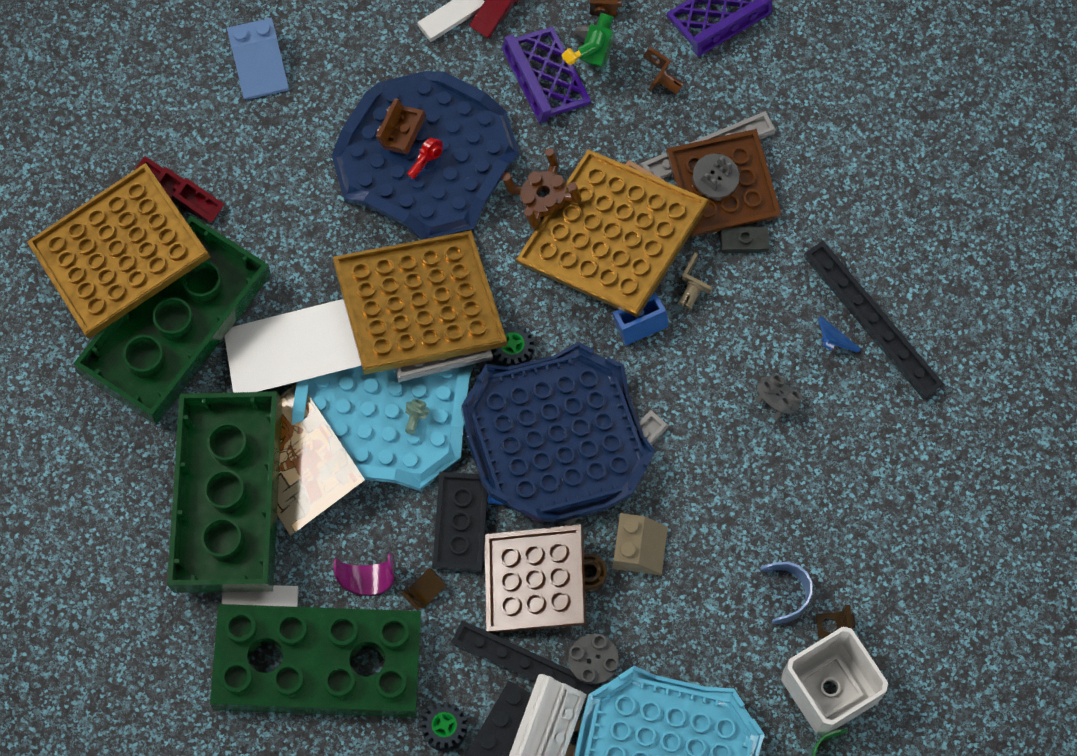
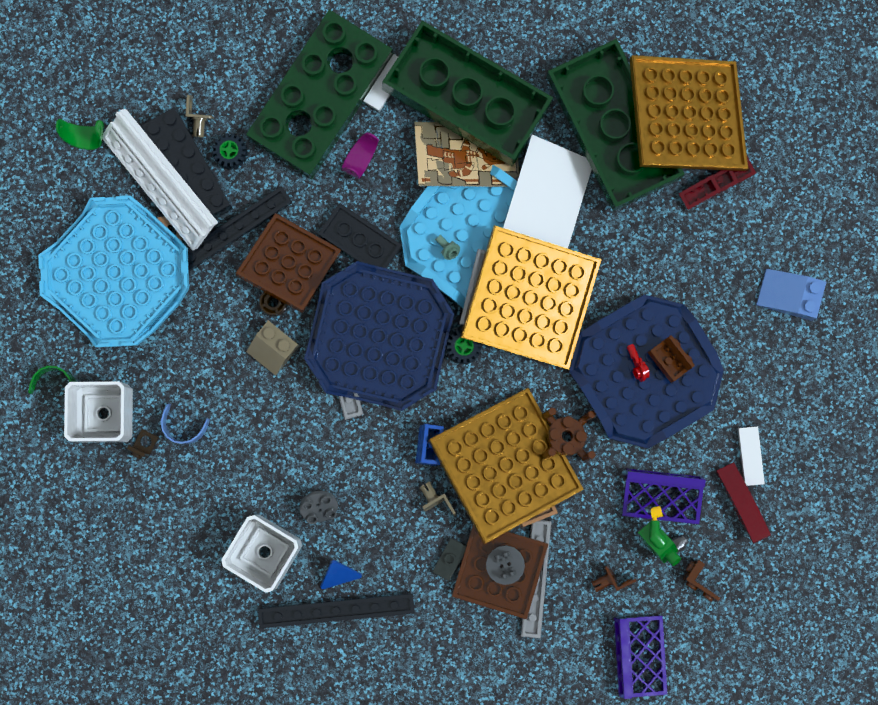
camera: 125 degrees right, 15 degrees up
(424, 589) = (326, 187): dark brown bracket -> none
(587, 649) = (222, 269): dark grey plate -> none
(871, 398) = (244, 553): none -> white plate

